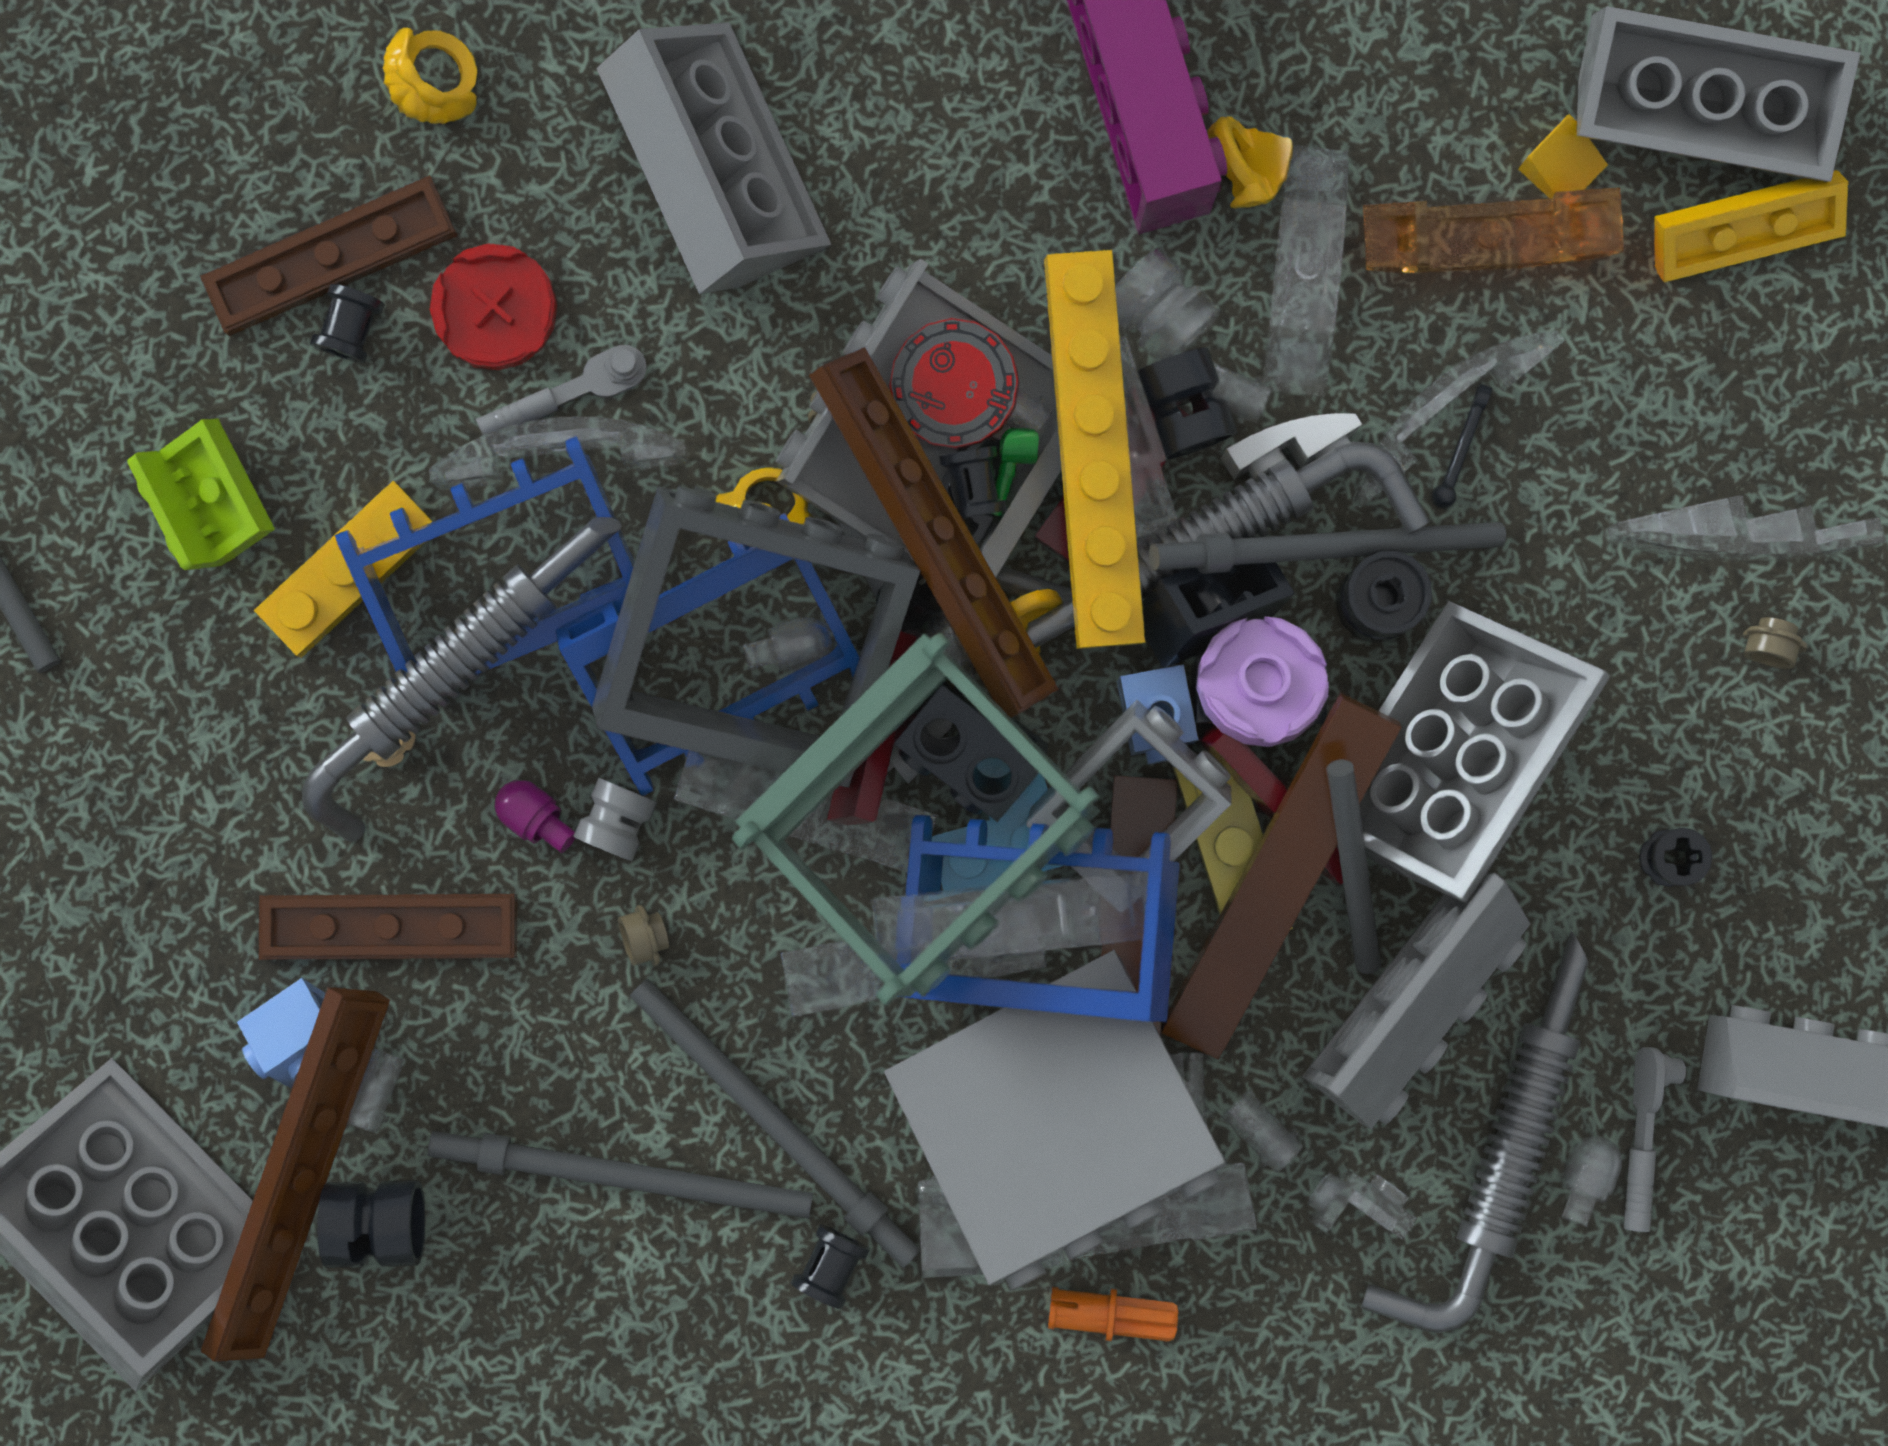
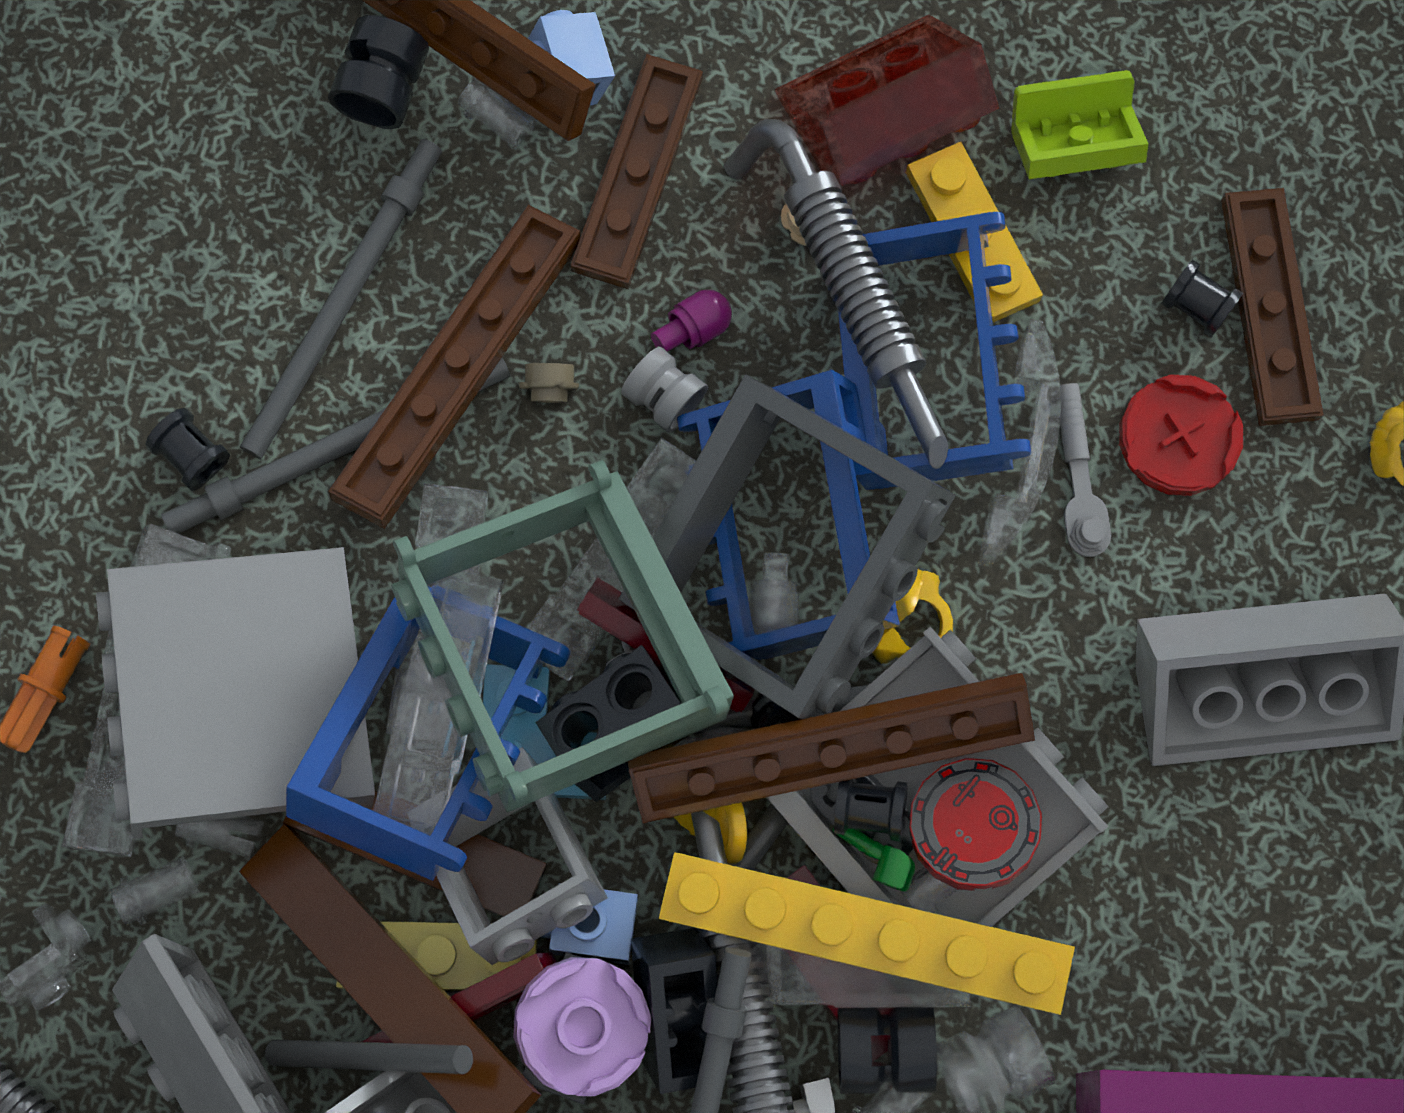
camera: 100 degrees right, 10 degrees down
(229, 696) = (890, 98): none -> clear red slope
(657, 1031) = (454, 367): none -> reddish brown tile

